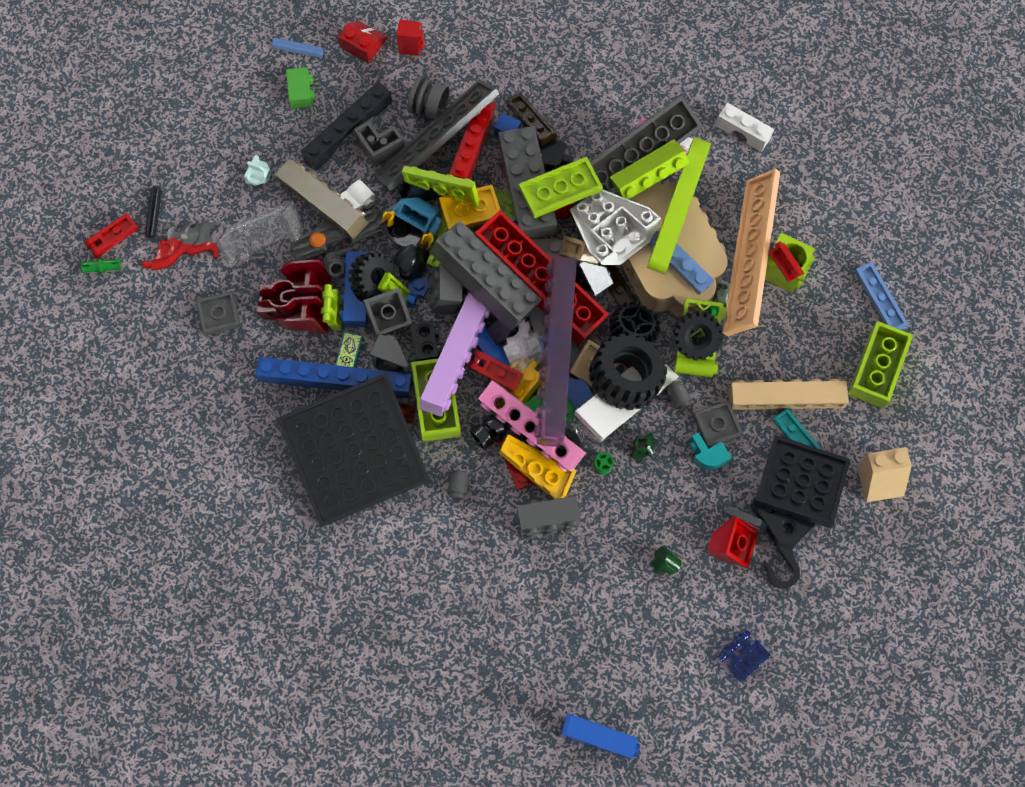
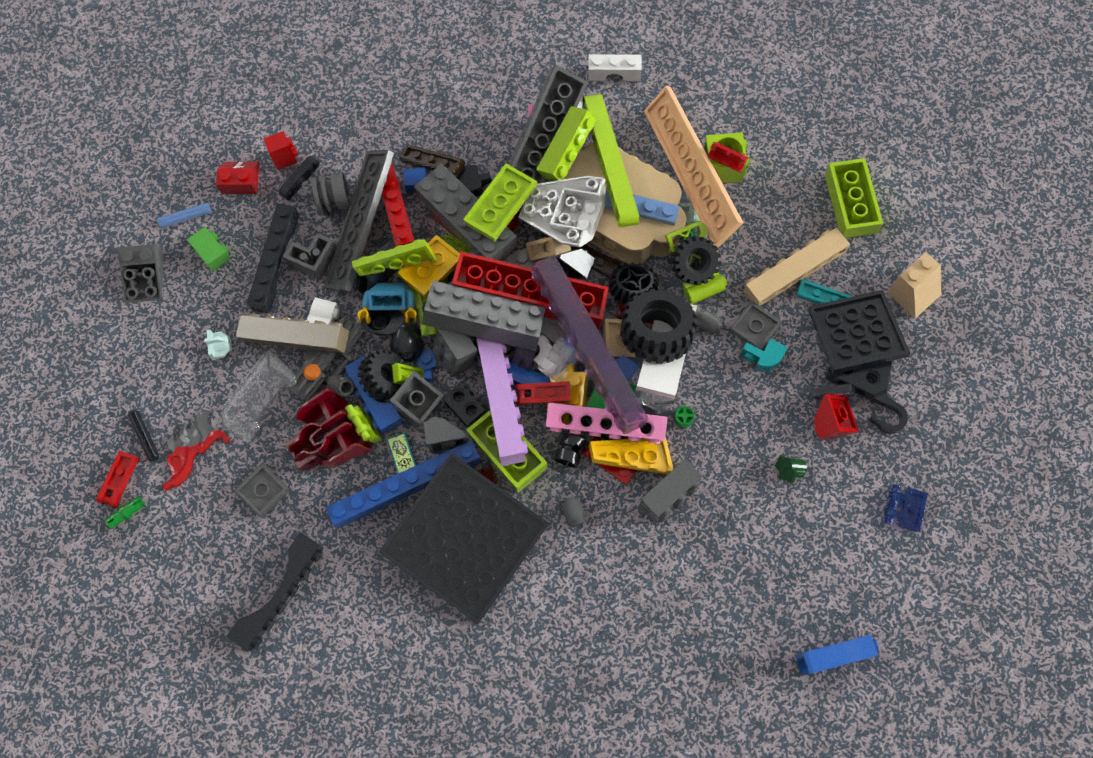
camera: 25 degrees left, 0 degrees up
(141, 418) = (249, 629): none -> black arch
(234, 76) = (141, 272): none -> dark grey slope
(404, 71) = (301, 174): none -> black beam
(643, 446) = (707, 382): dark green piece -> none
(880, 296) = (814, 143): medium blue plate -> none

